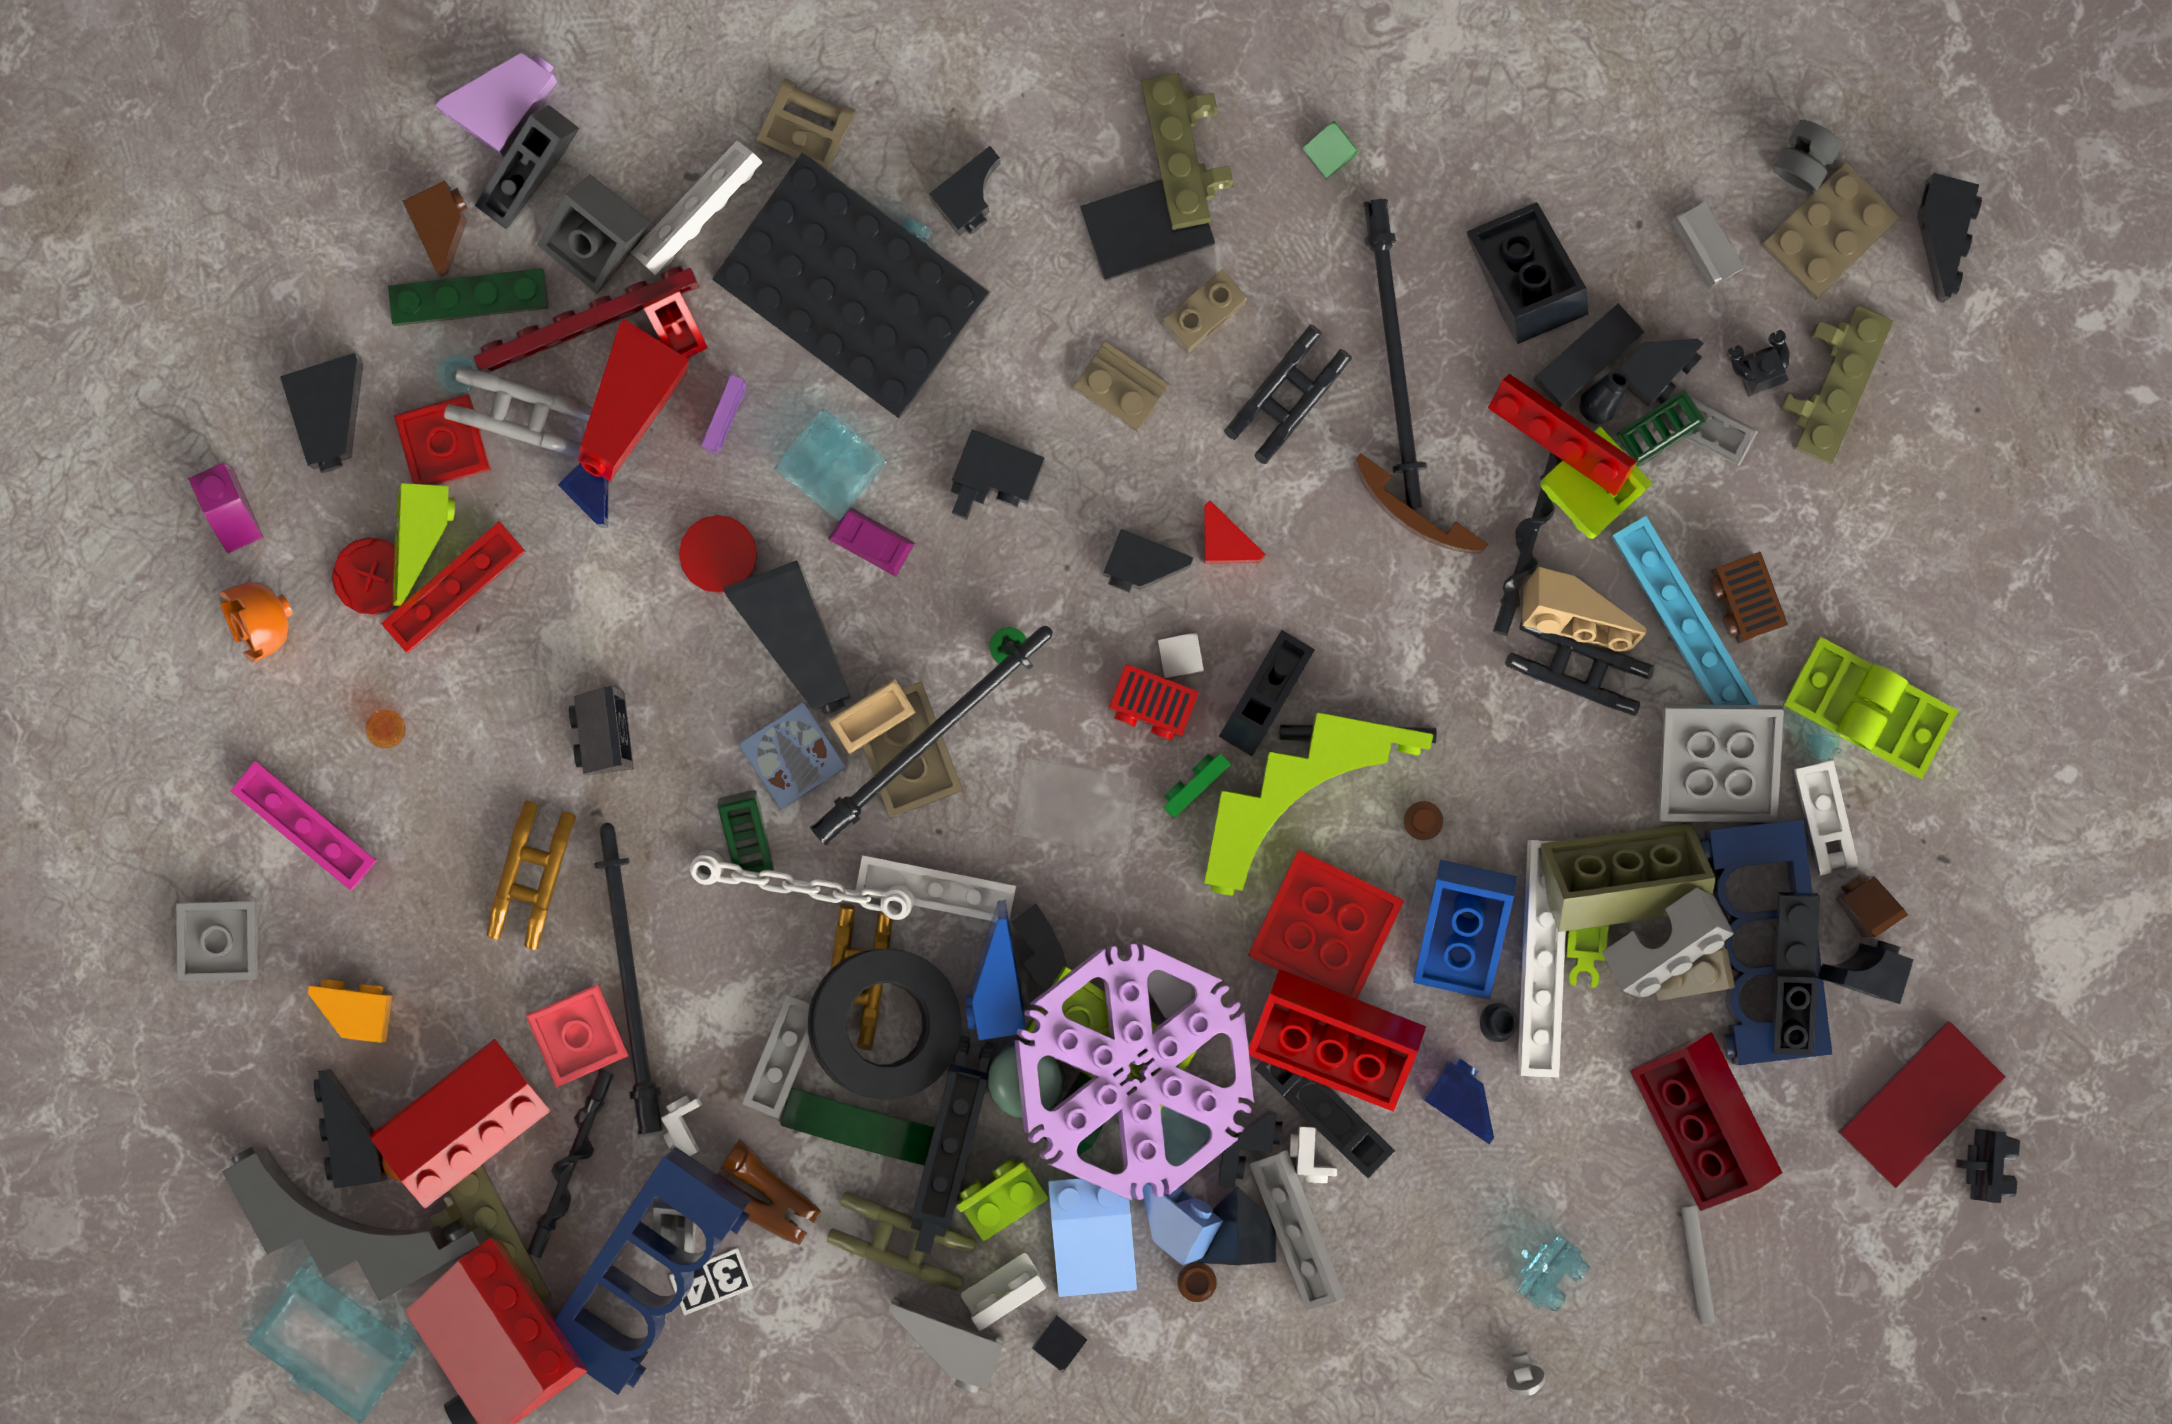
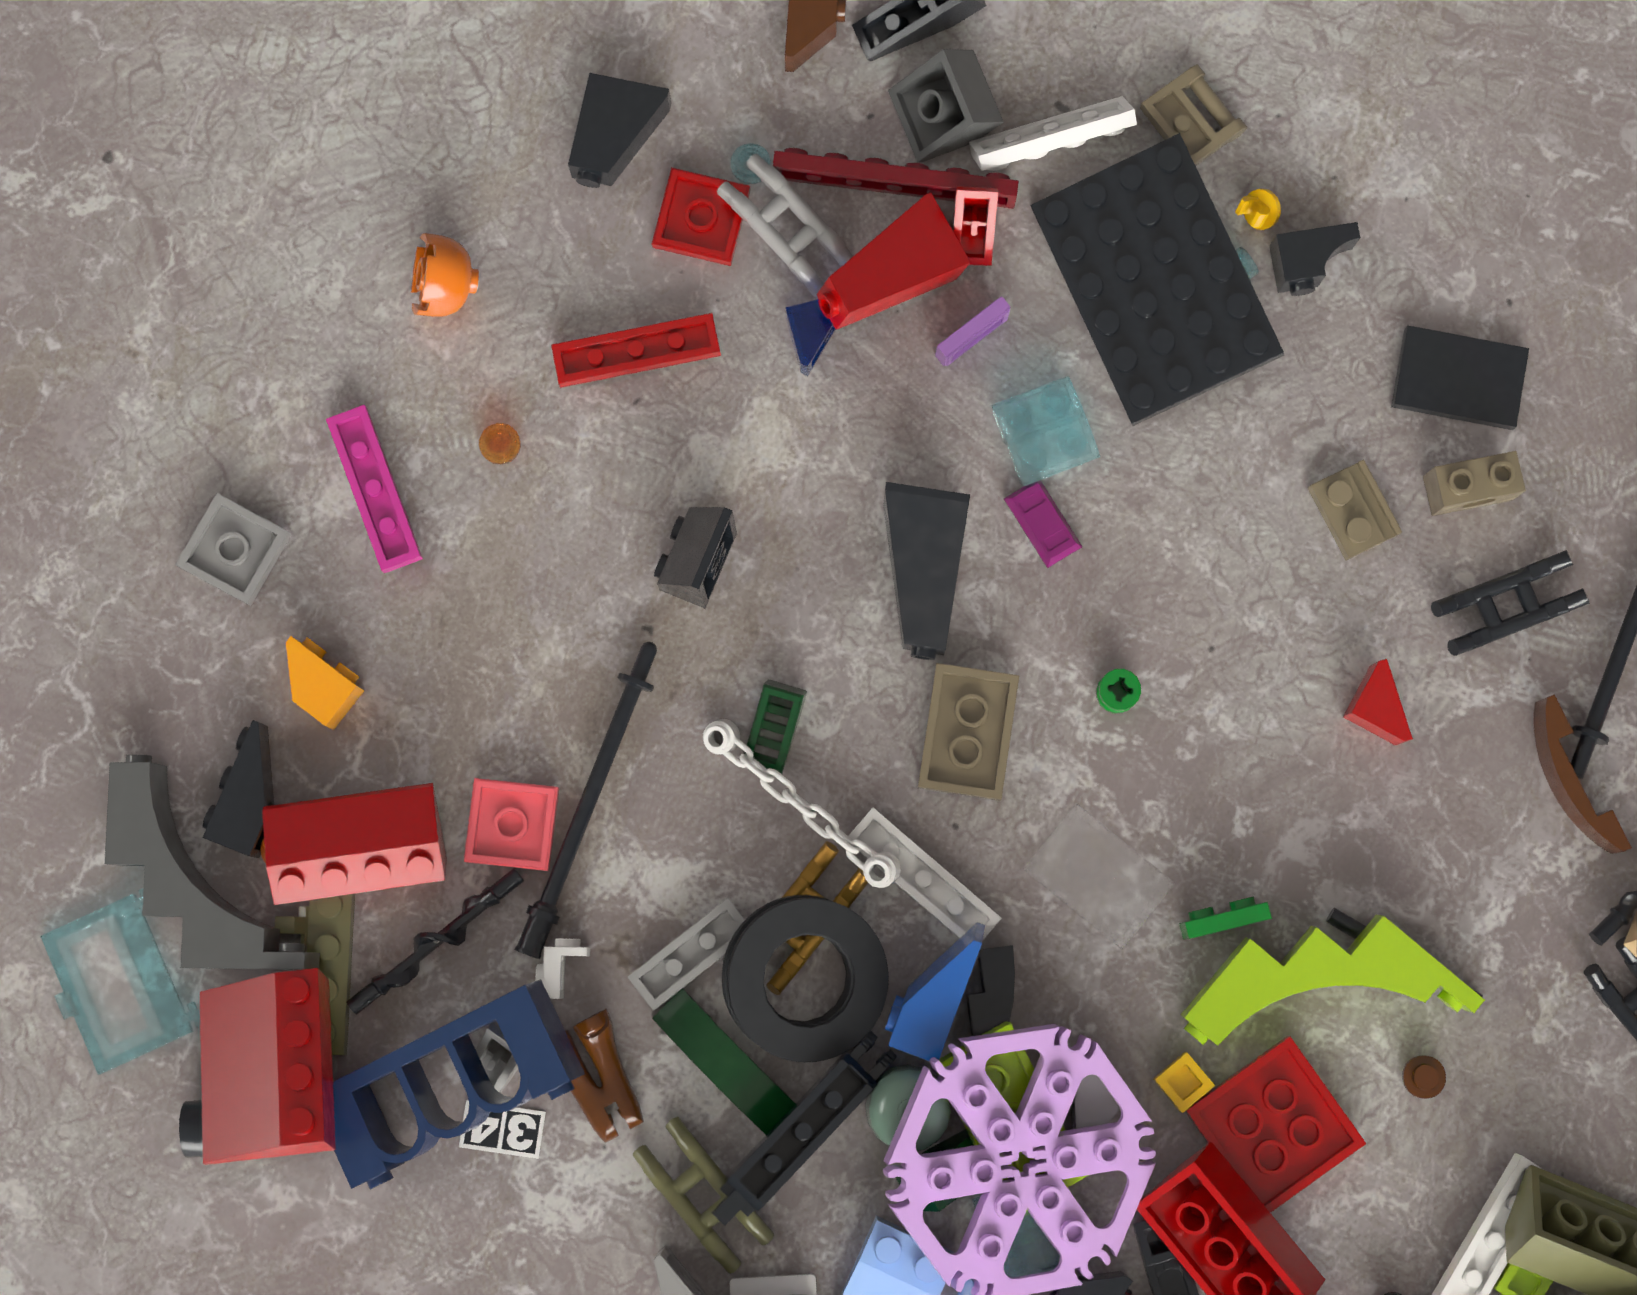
camera: 30 degrees right, 5 degrees down
(226, 507) = (473, 163): magenta slope -> none
(366, 576) = (567, 300): red tile -> none
(420, 521) = (637, 277): lime slope -> none
(468, 297) = (799, 101): dark green plate -> none
(549, 860) = (550, 676): pearl gold piece -> none
(717, 553) = (895, 452): red tile -> none
(792, 755) = (859, 678): tile -> none
(849, 808) = (885, 755): black bar -> none
(872, 716) = (955, 682): tan tile -> none
(905, 175) = (1260, 208): none -> yellow plate
(996, 467) = (1197, 518): black hinge -> none
(1002, 1199) = (821, 1210): lime bracket -> none
(1142, 562) = (1289, 682): black slope -> none
(1152, 701) = (1227, 818): red brick -> none
(1180, 655) = (1276, 790): white slope -> none
(1184, 180) = (1520, 351): olive hinge -> none
(1234, 934) = (1183, 1082): none -> yellow plate
(1266, 693) = (1338, 871): black slope -> none
(1465, 929) = (1410, 1205): blue slope -> none

